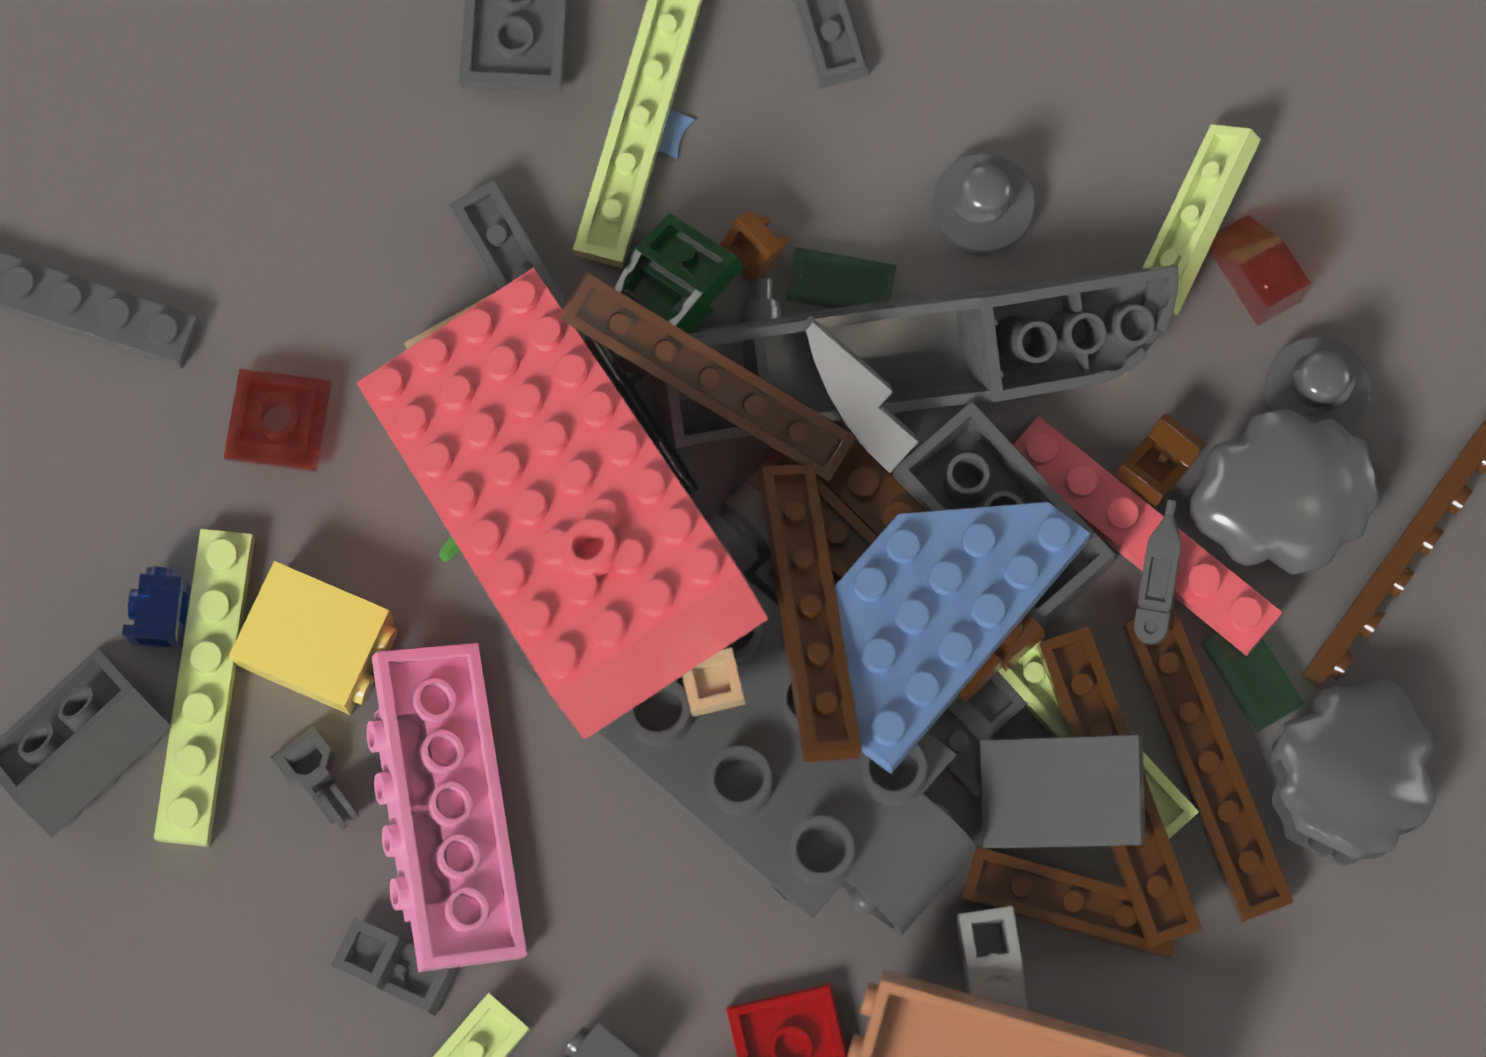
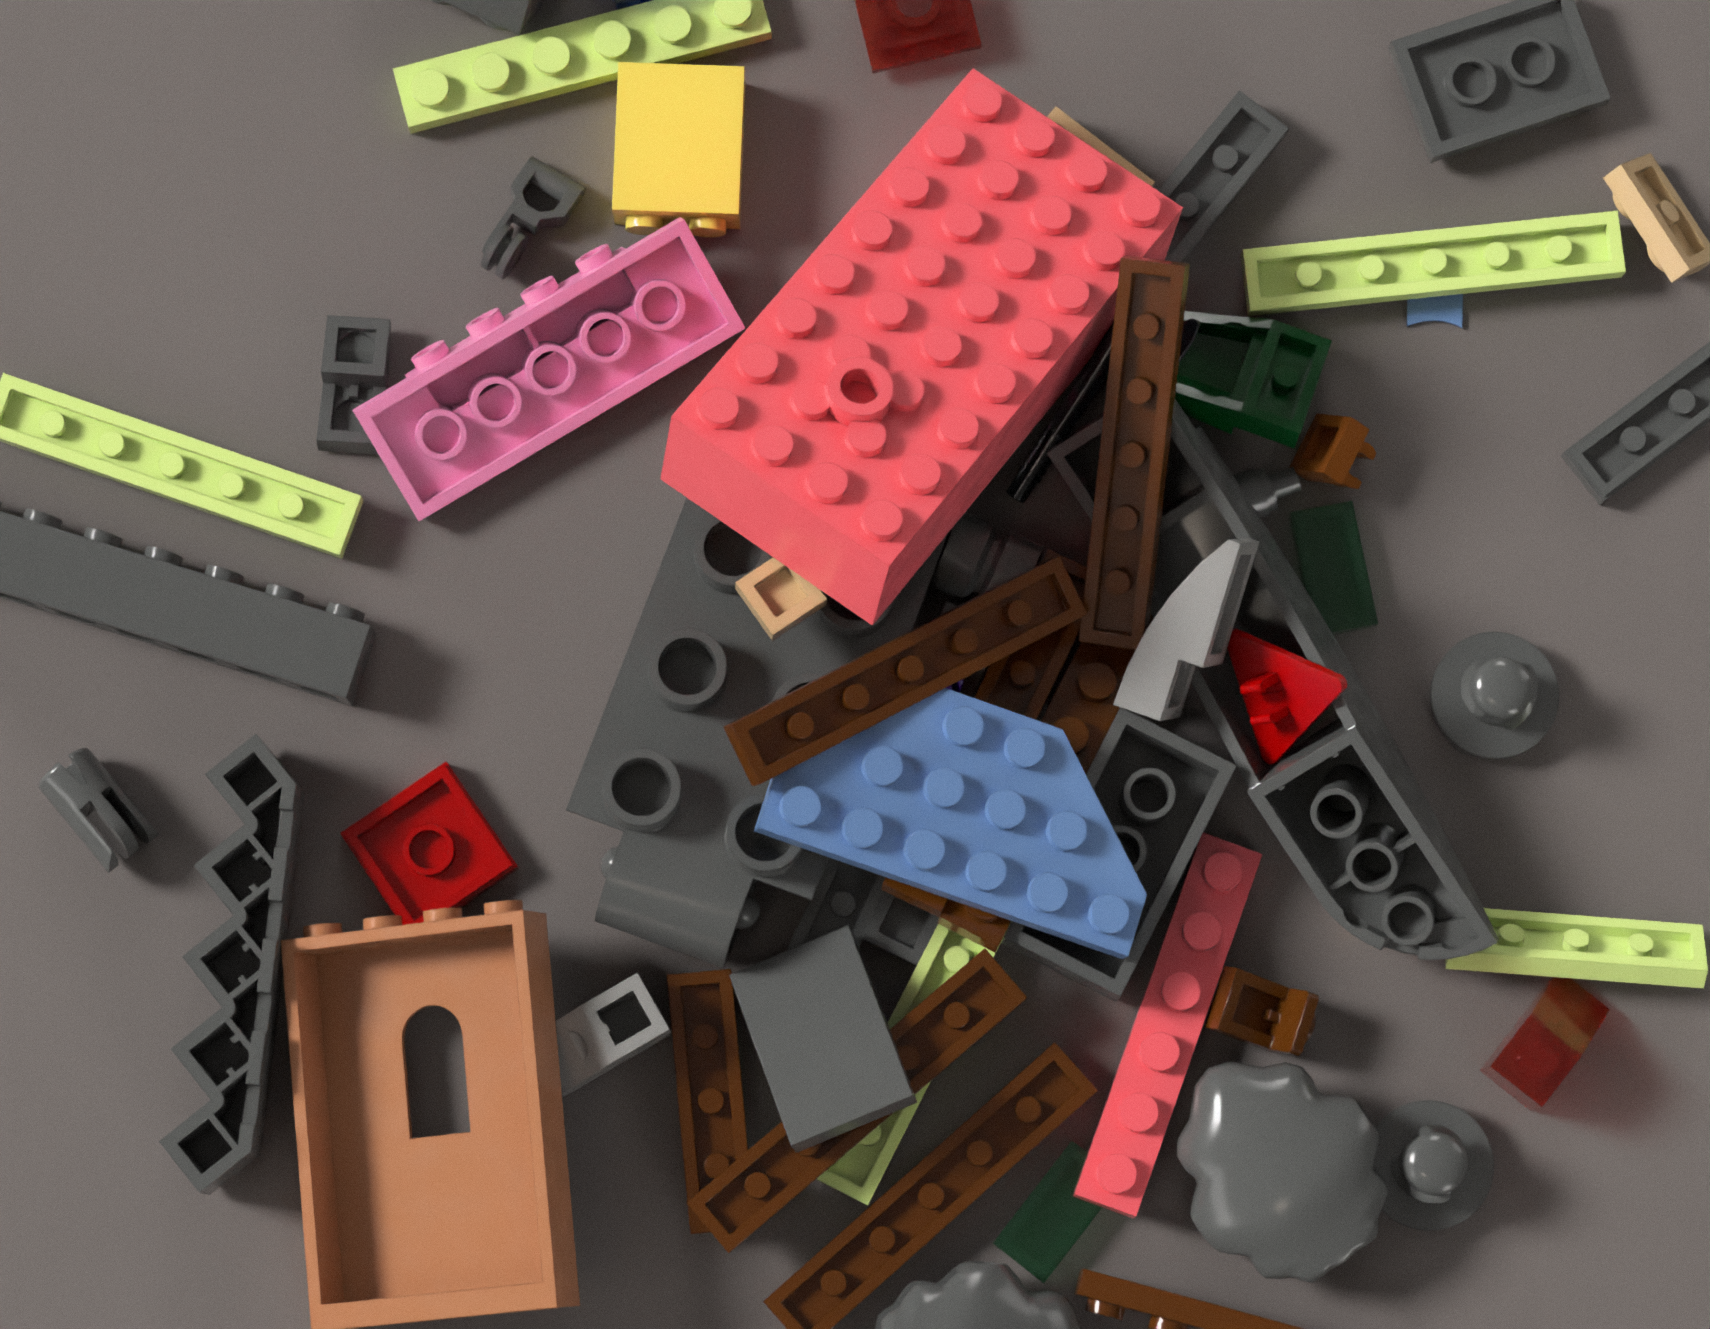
camera: 65 degrees right, 5 degrees up
(927, 347) = (1280, 691): none -> red piece
(1159, 580) = (1114, 1059): dark grey piece -> none

